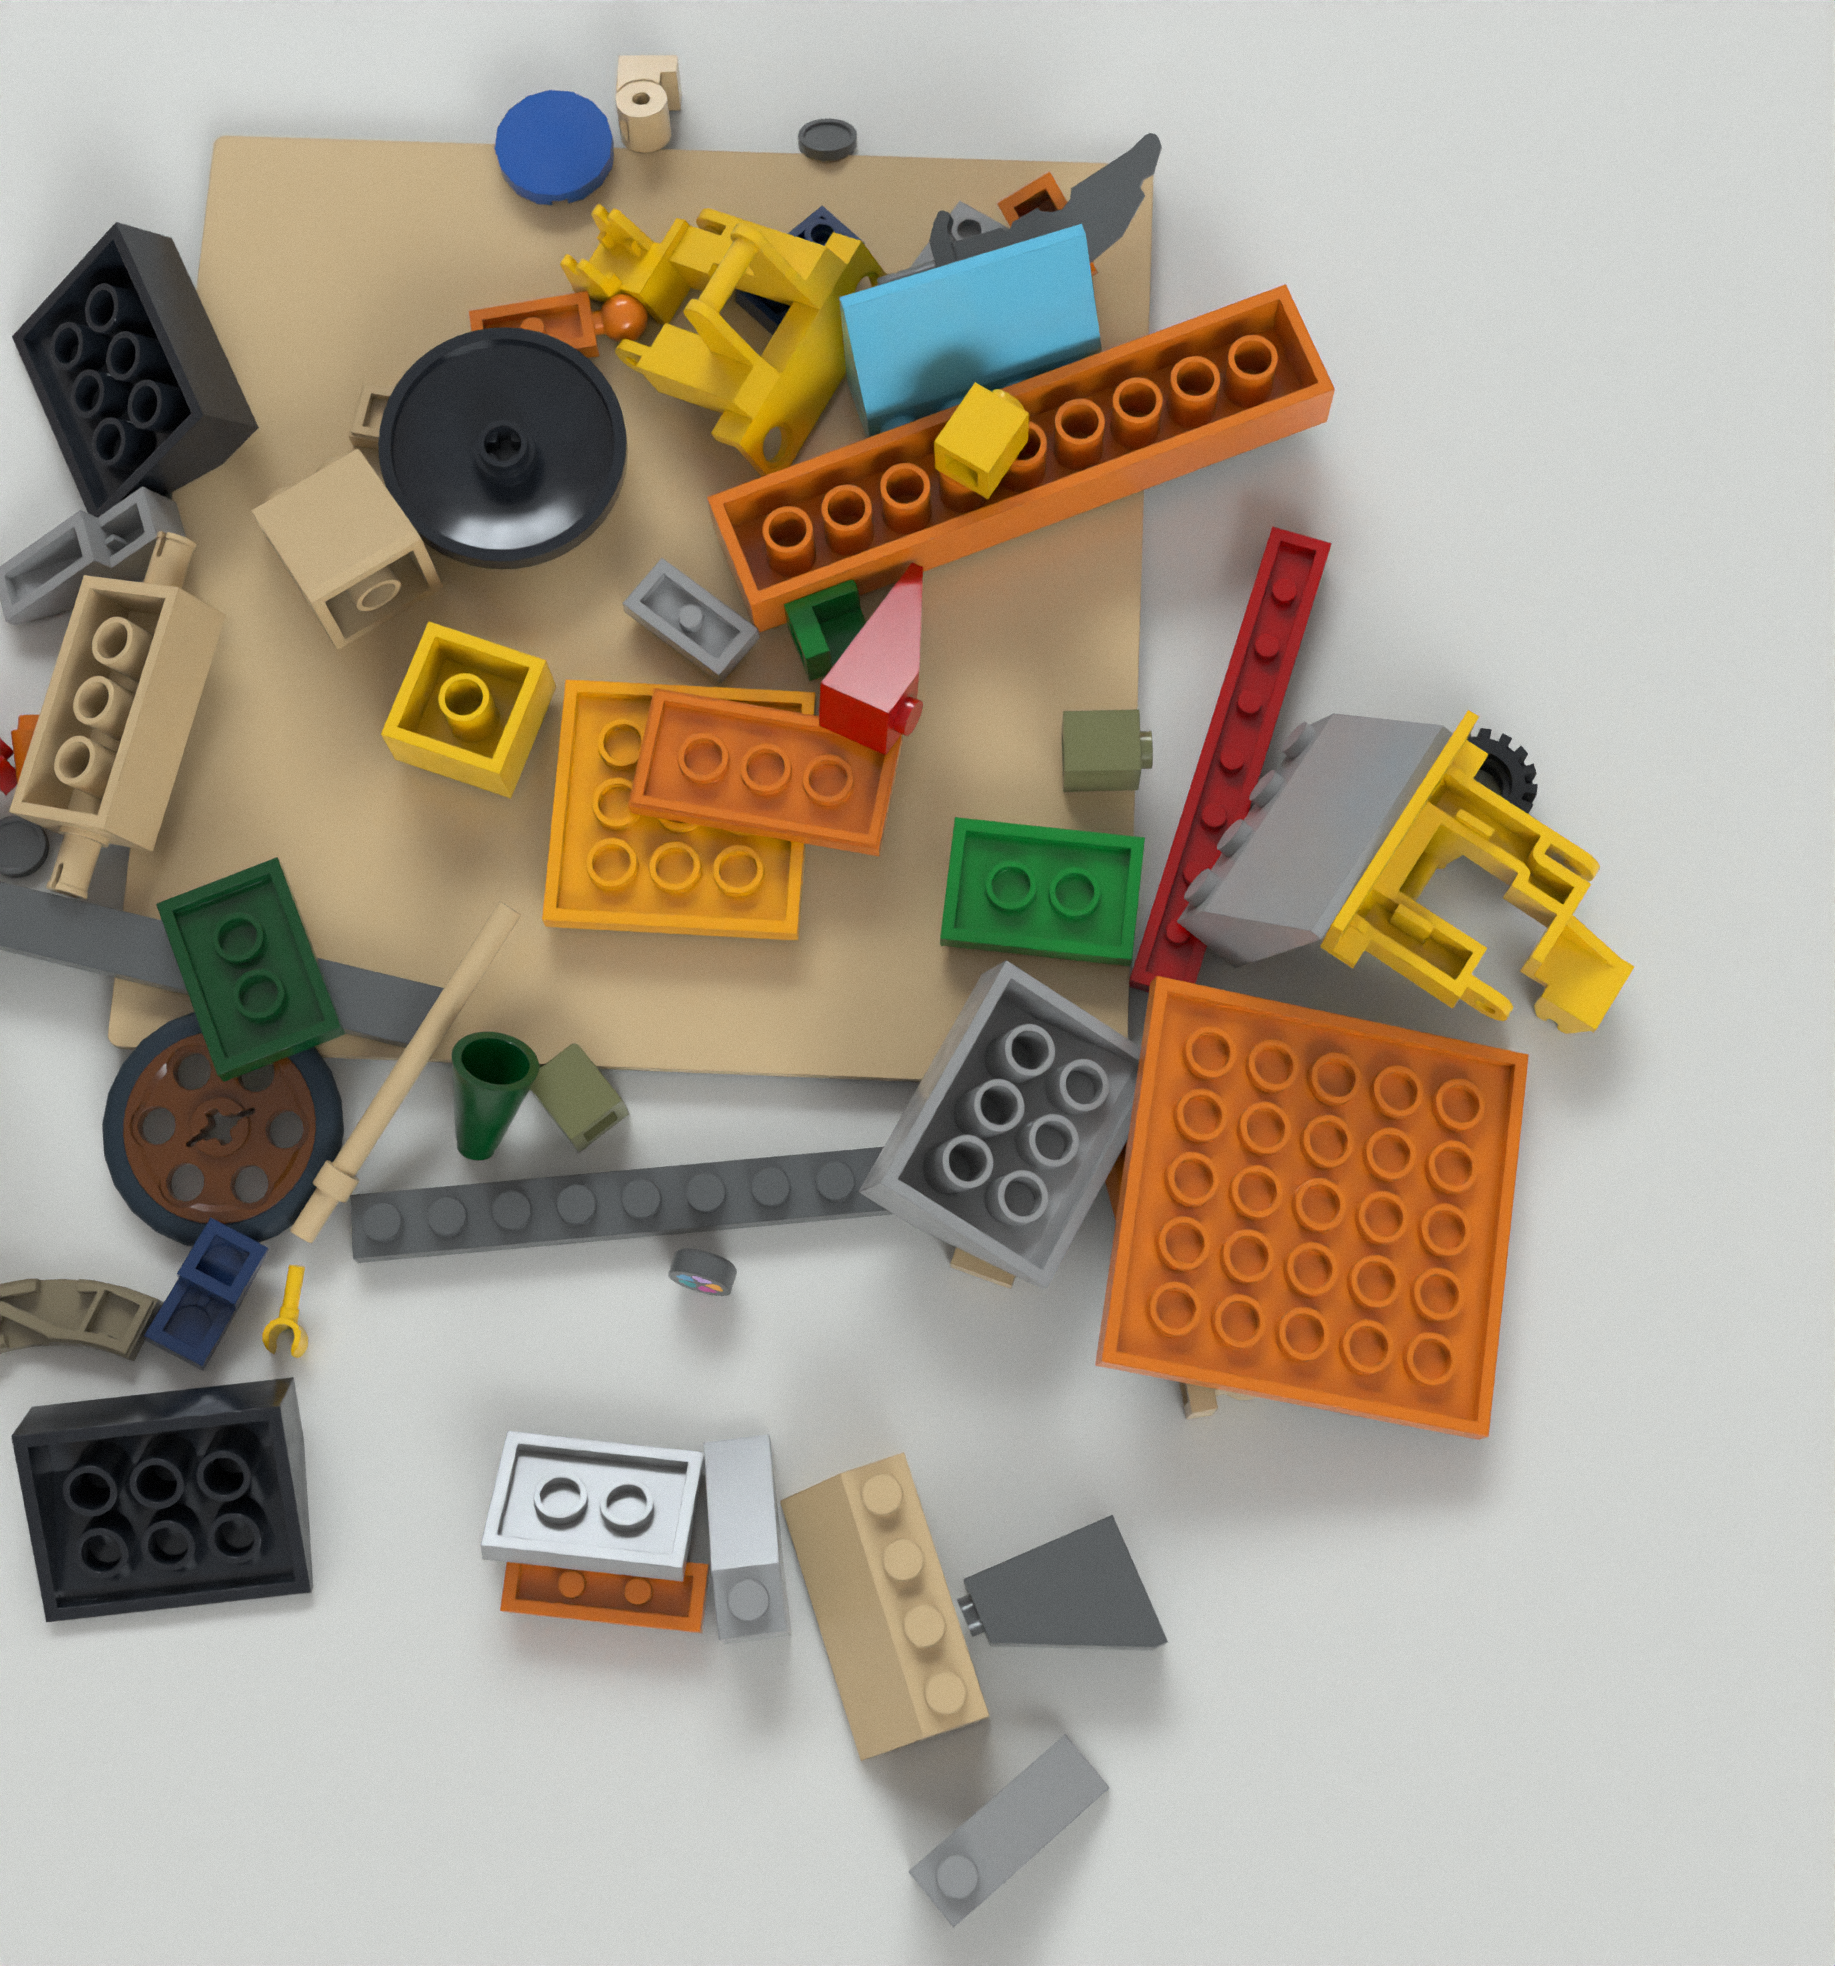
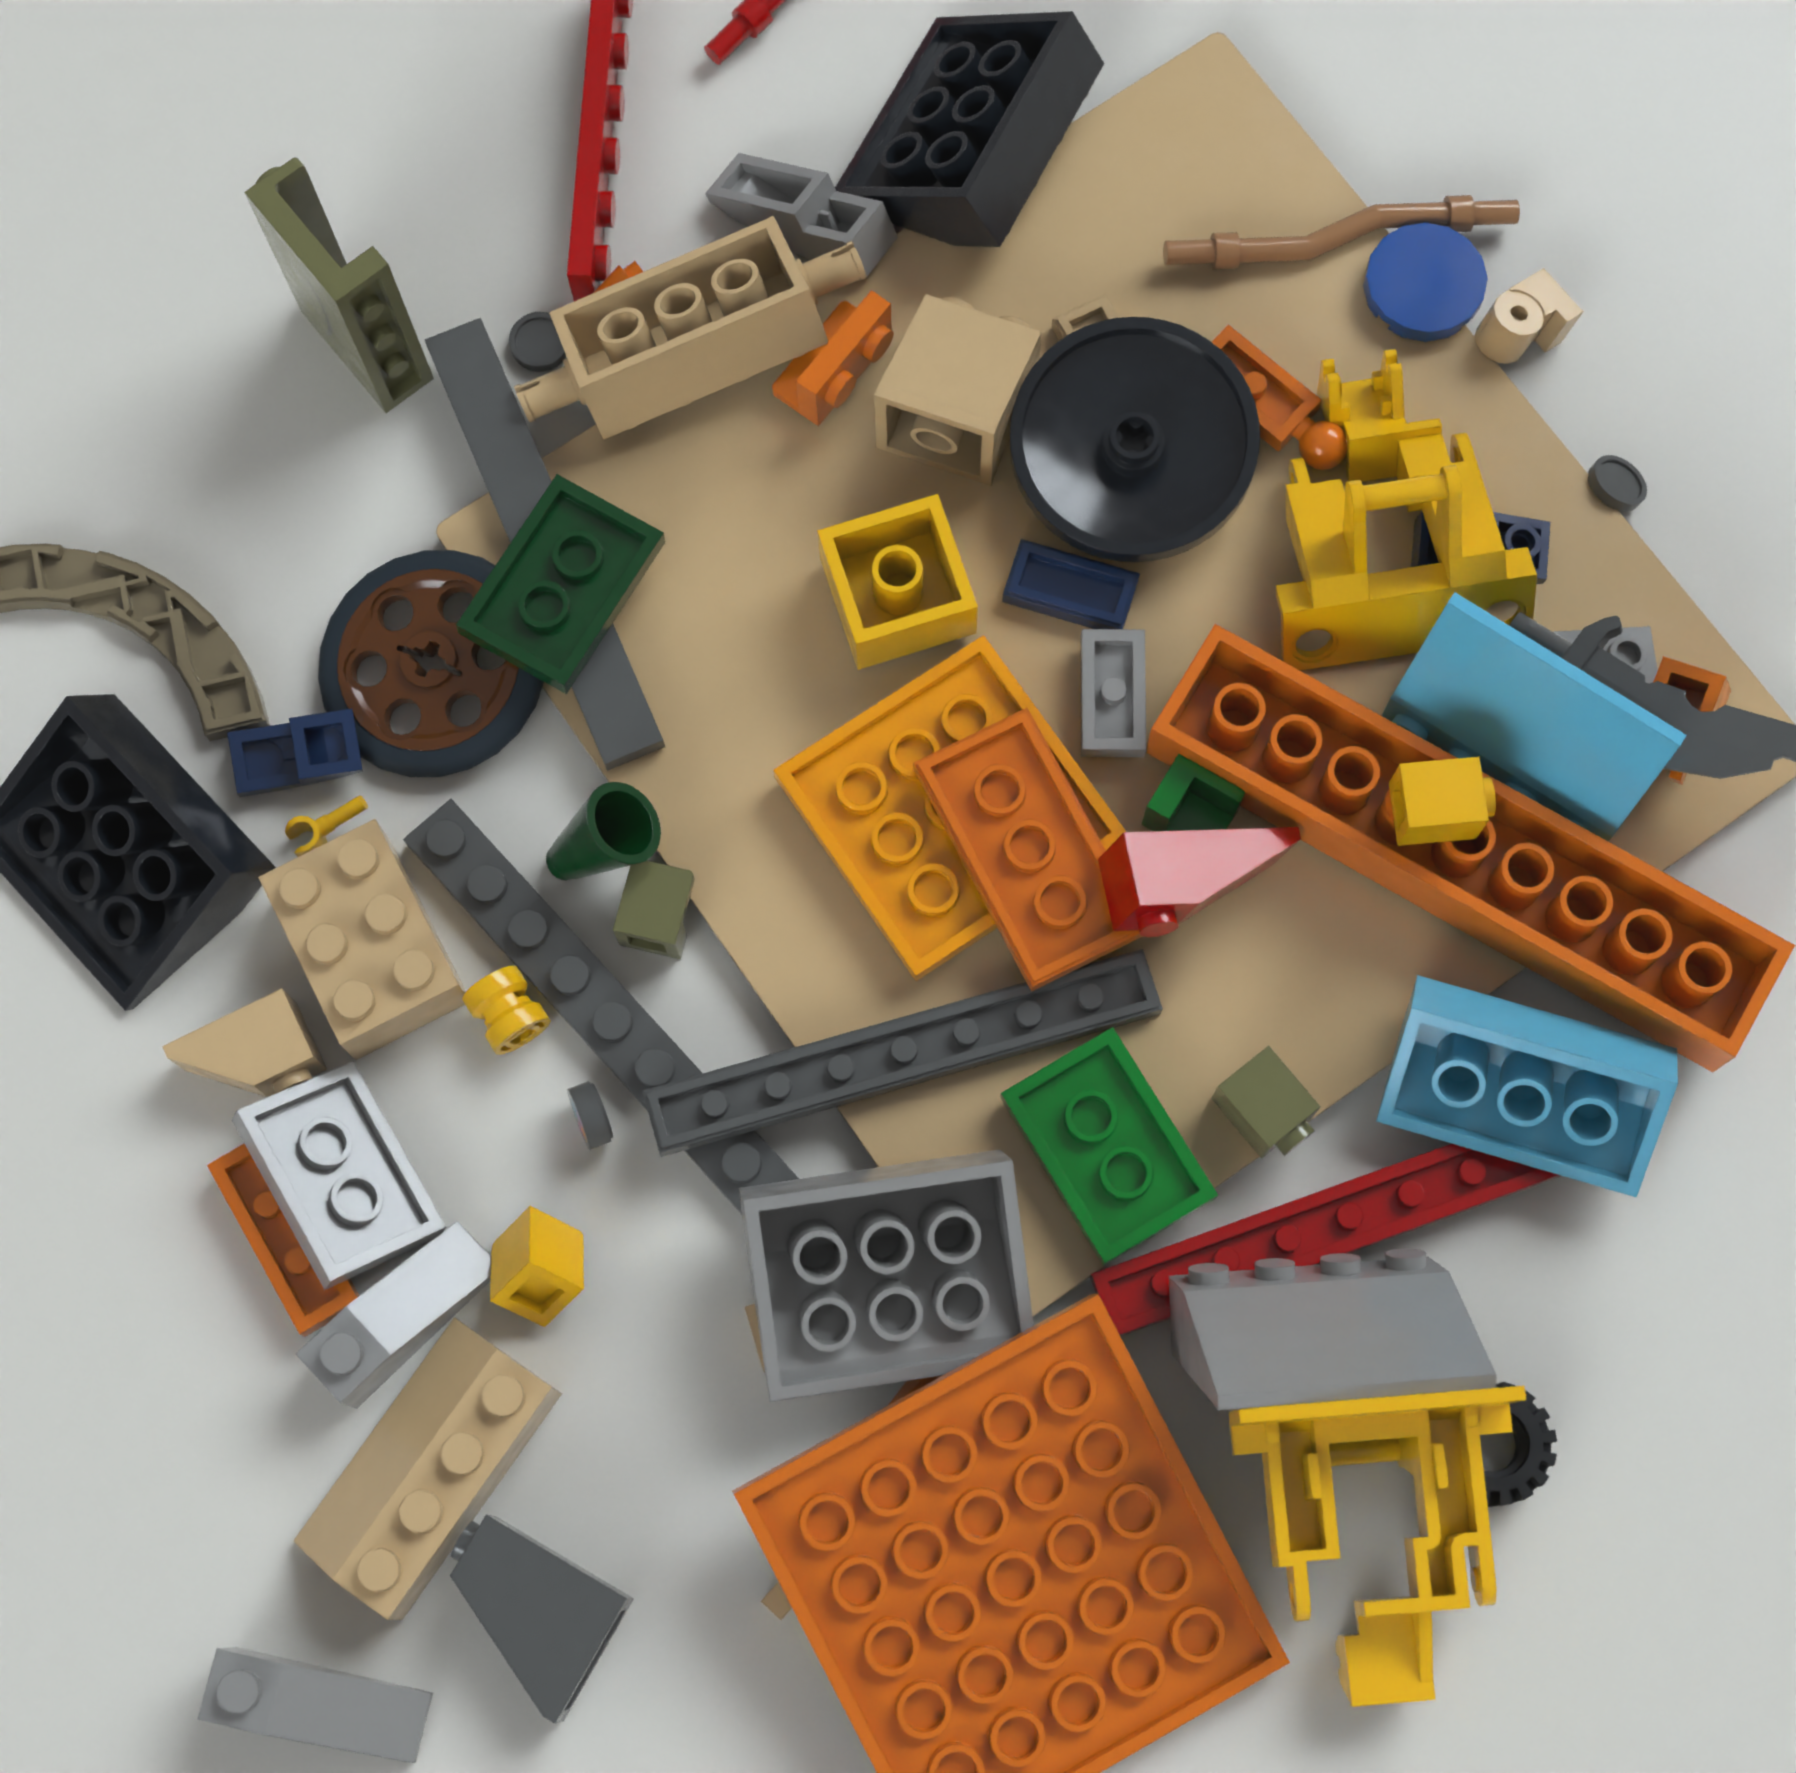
camera: 50 degrees right, 0 degrees up
(249, 637) = (829, 373): none -> orange bracket
(337, 1178) = (456, 778): tan bar -> none
(407, 265) = (1229, 250): none -> medium nougat bar
(414, 1346) = (364, 939): none -> tan brick
(432, 1505) = (253, 1048): none -> tan slope
(570, 1277) = (508, 1014): none -> yellow wheel
(578, 589) = (1070, 587): none -> dark blue tile
(792, 1402) = (537, 1266): none -> yellow panel
(844, 998) = (900, 1053): none -> dark grey tile
(1237, 553) = (1529, 1086): none -> medium azure slope

